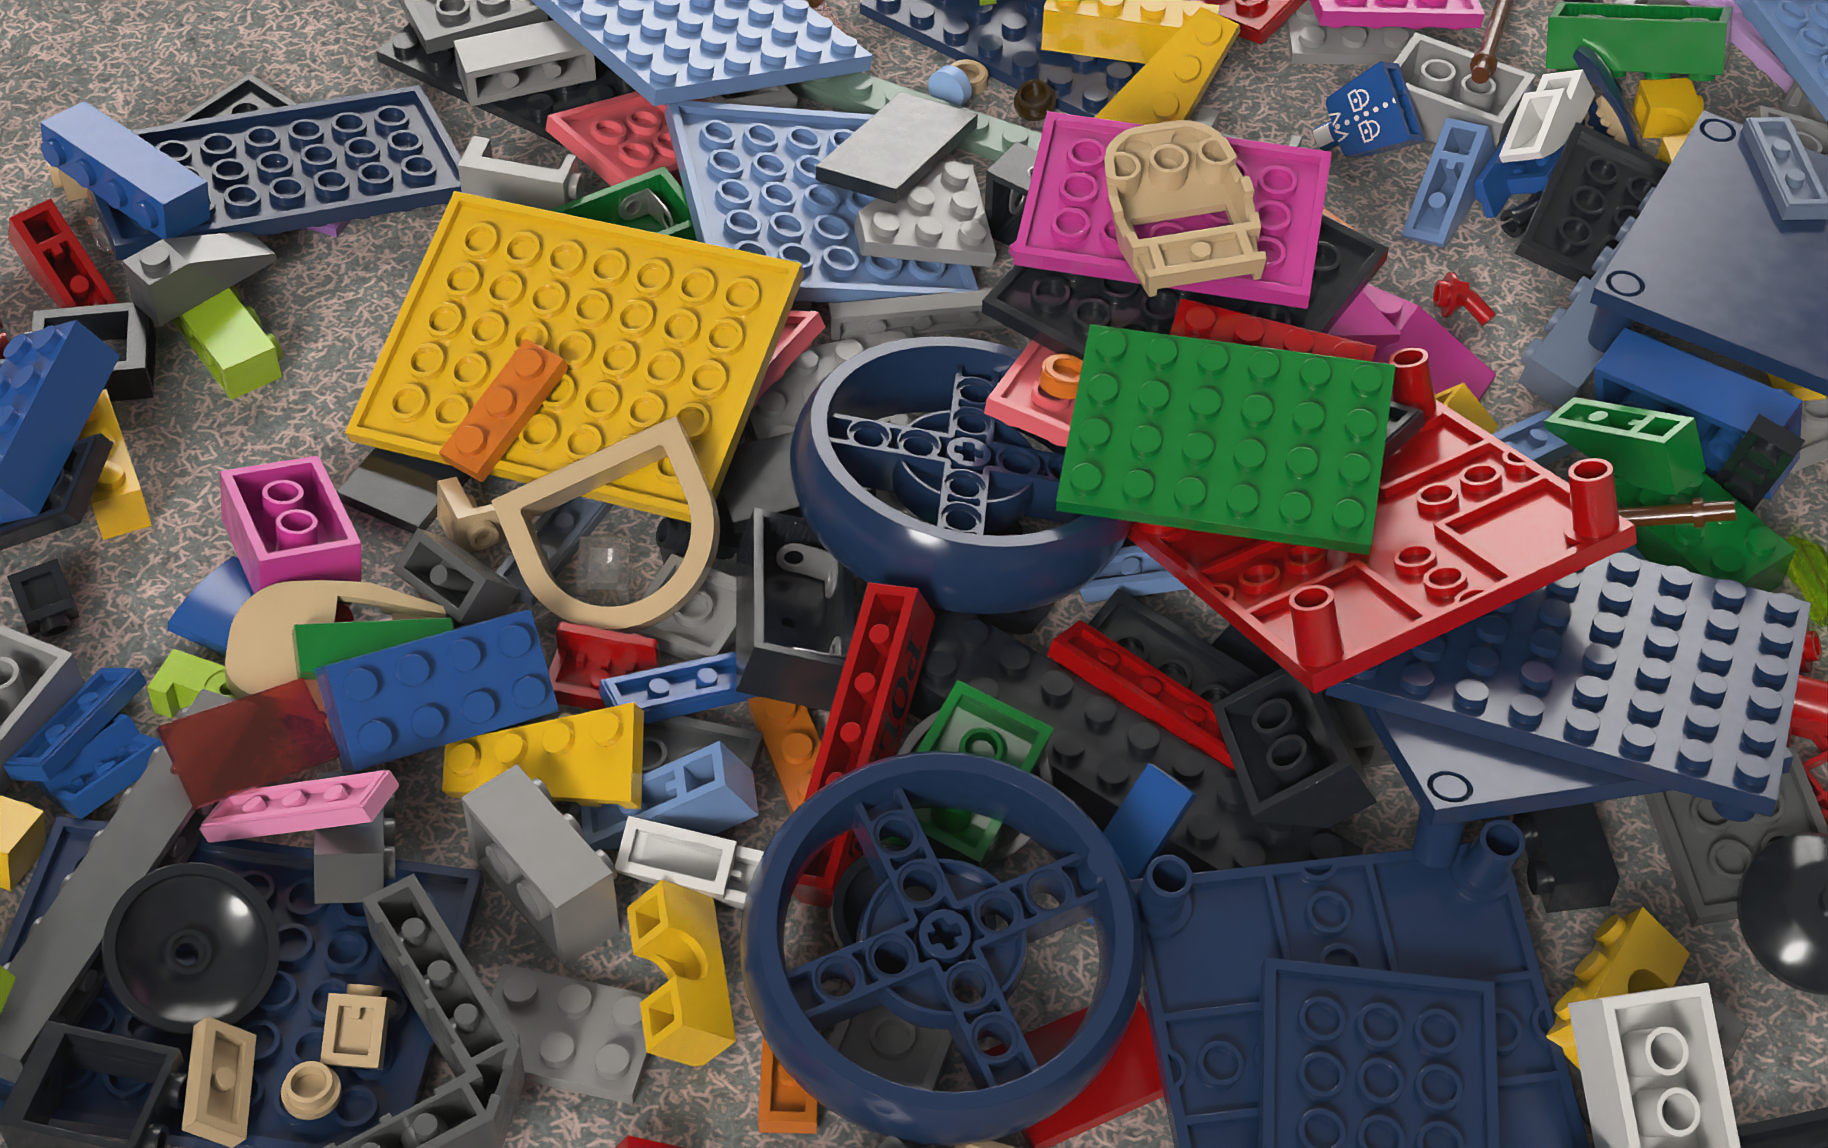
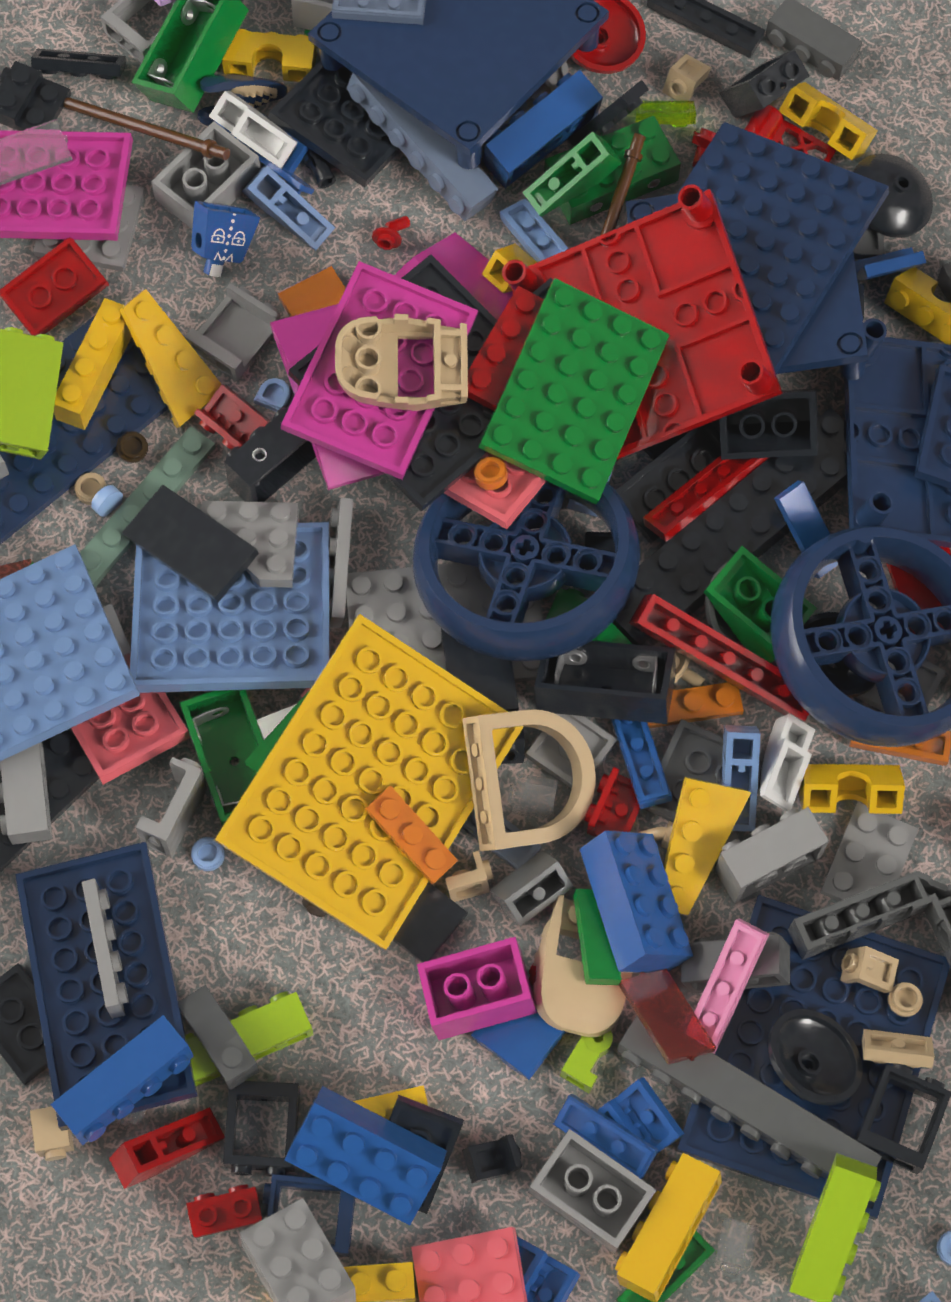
camera: 80 degrees left, 20 degrees up
(310, 143) = (107, 959): none -> light grey plate
(1673, 907) = (888, 263): none -> blue slope

